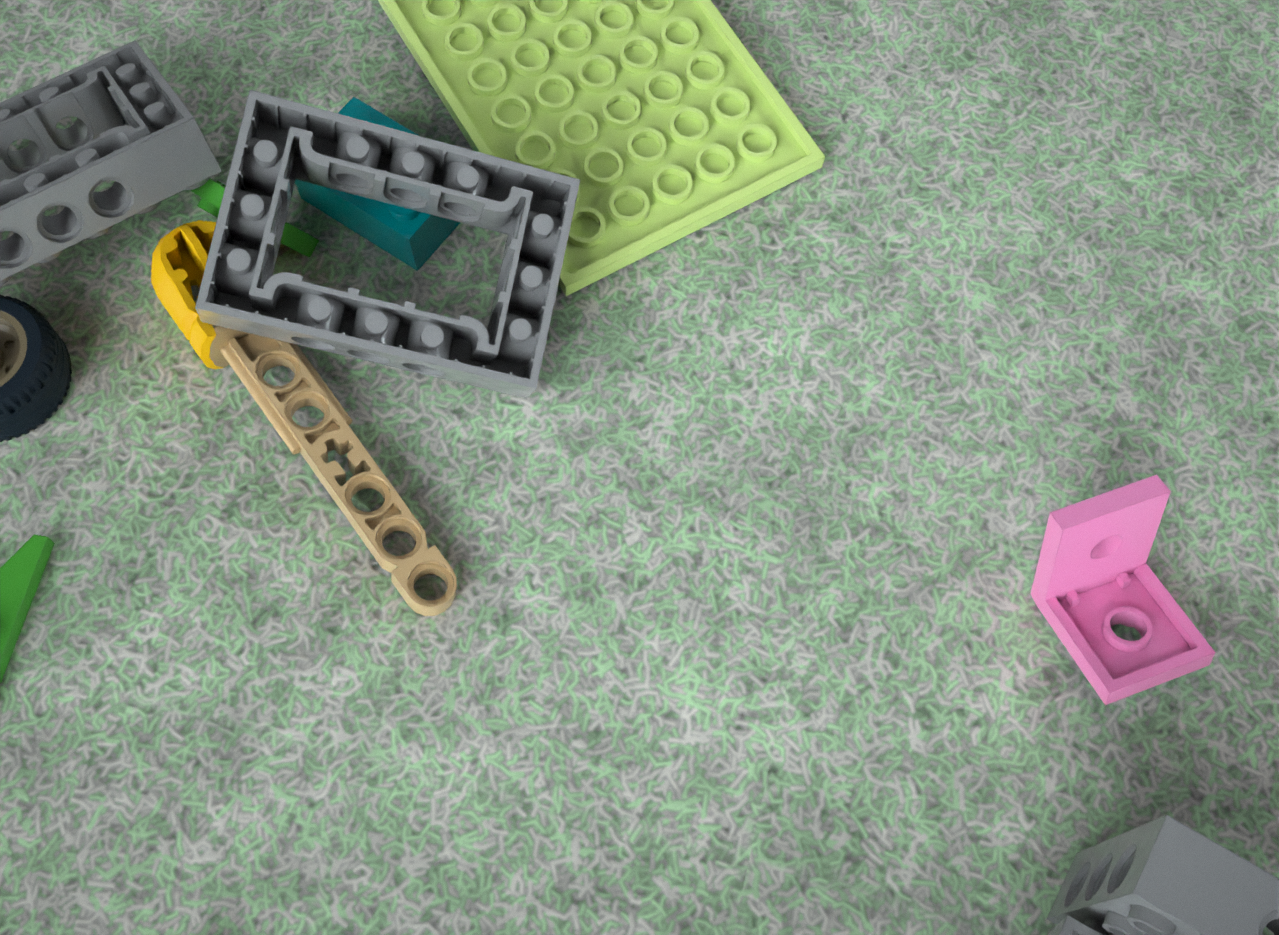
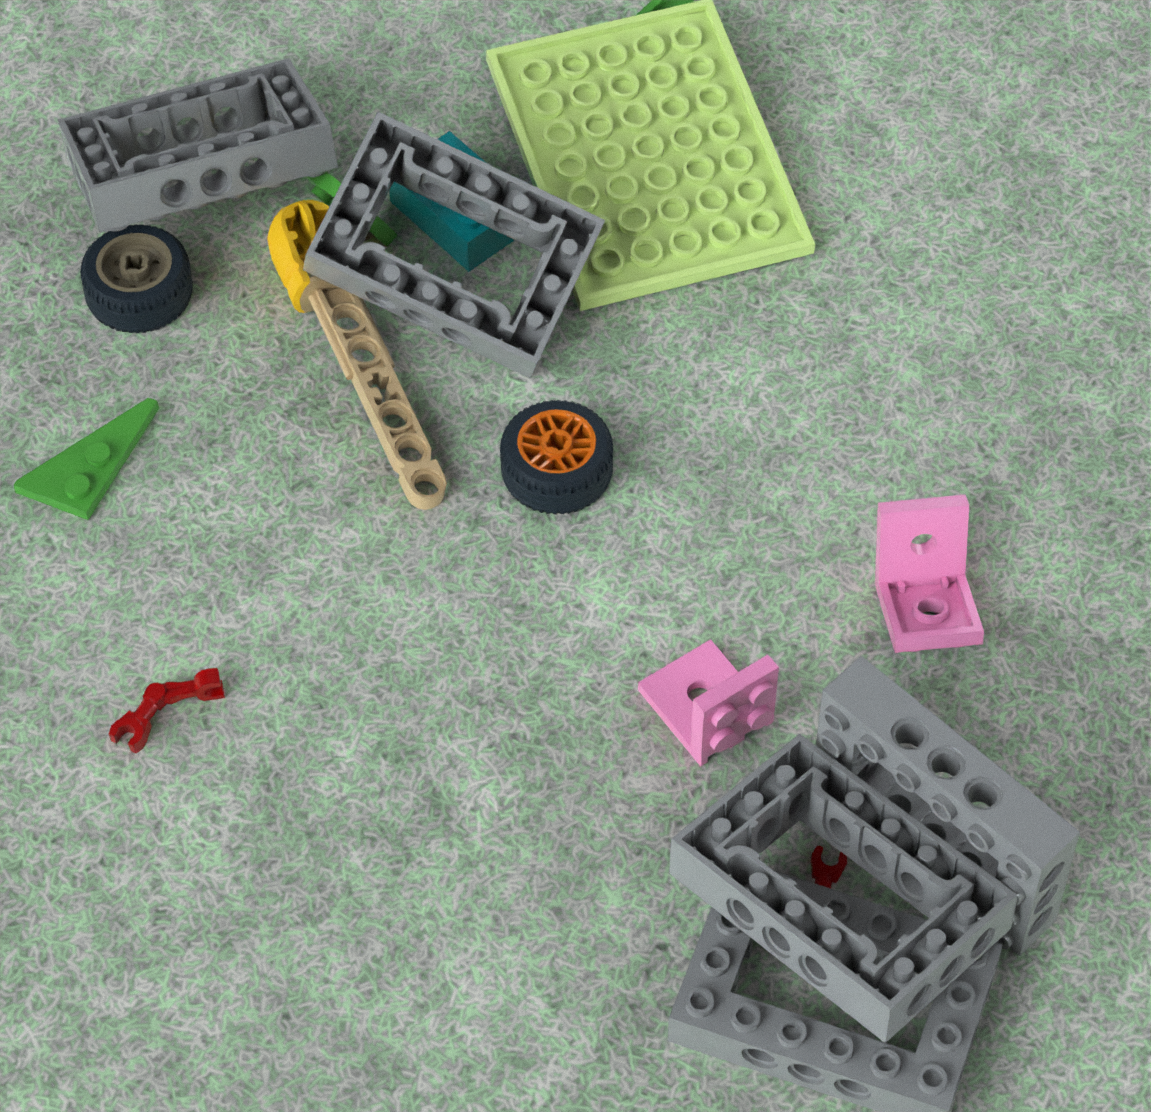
camera: 15 degrees right, 10 degrees down
(590, 509) = (556, 457): none -> black wheel
(922, 845) = (721, 715): none -> bright pink bracket

